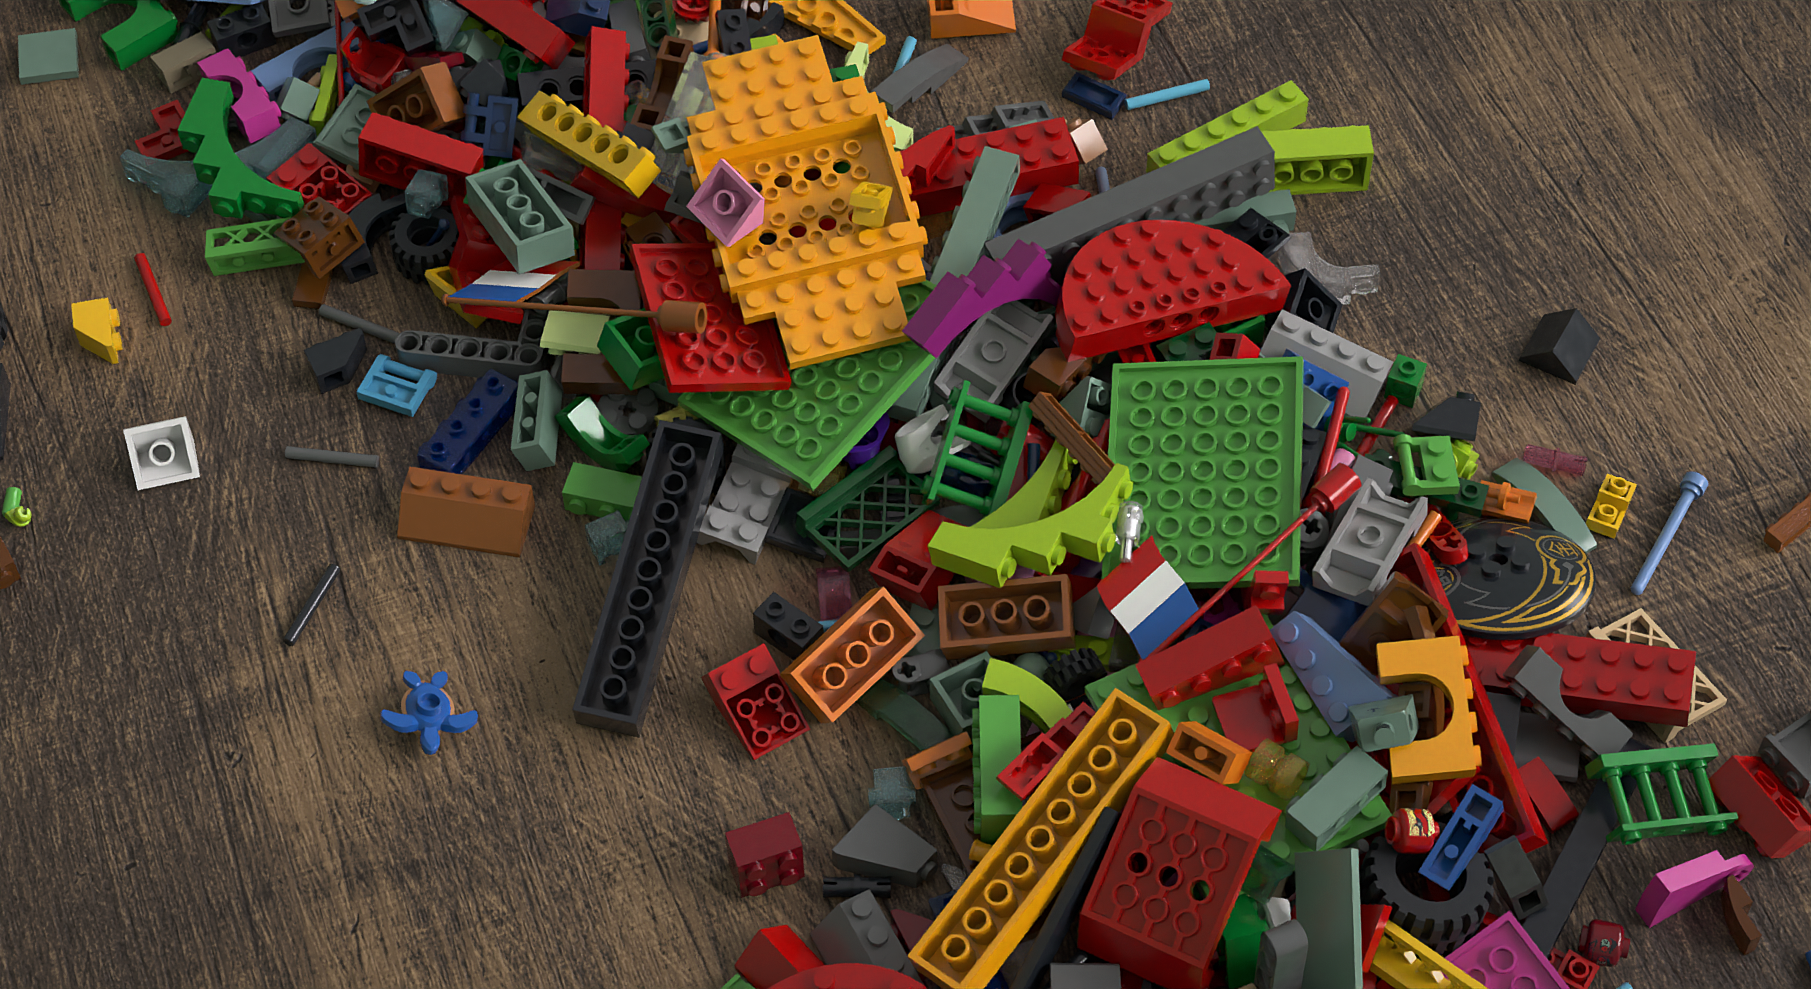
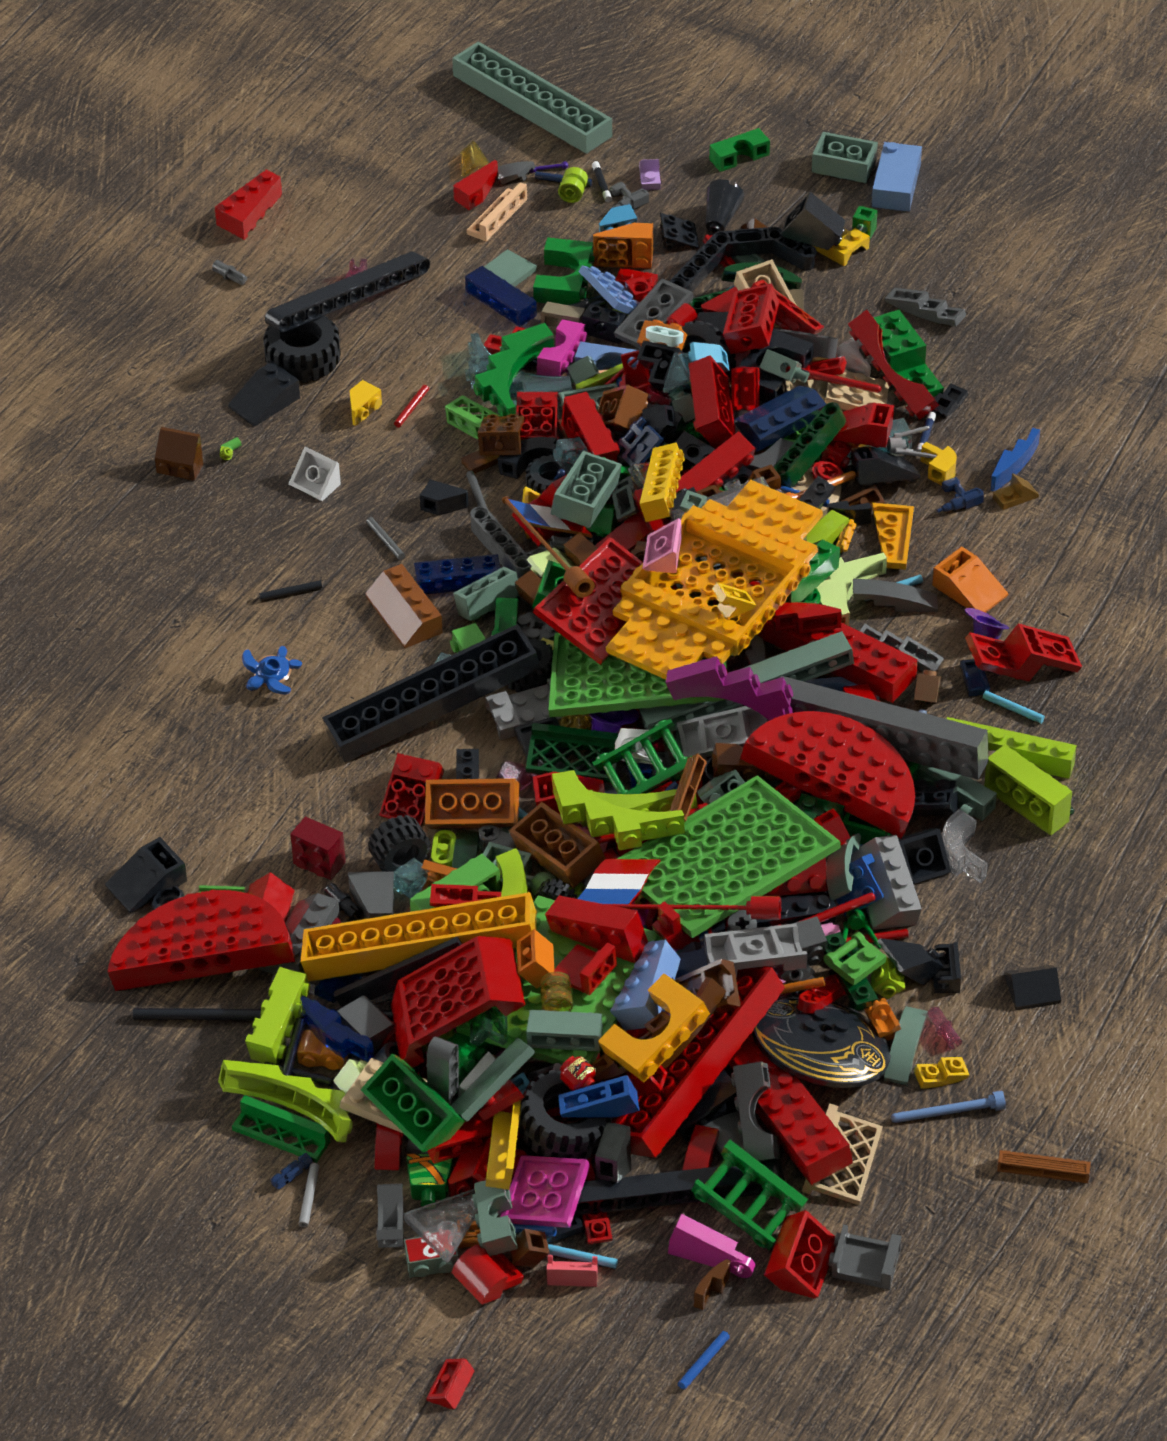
camera: 50 degrees right, 10 degrees down
(84, 91) = (500, 296): none -> clear blue brick
(392, 391) = (447, 531): dark azure plate -> none
(845, 770) = (398, 842): none -> black tyre
(877, 733) = (443, 847): none -> lime plate
(1043, 37) = (985, 624): none -> dark purple piece
(1128, 528) = (651, 846): clear piece -> none
(1384, 723) = (617, 1008): sand green torso -> none
(1405, 380) = (922, 926): green brick -> none
(1495, 402) = (949, 977): none -> black hinge
(1603, 942) = (628, 1231): dark red head -> none

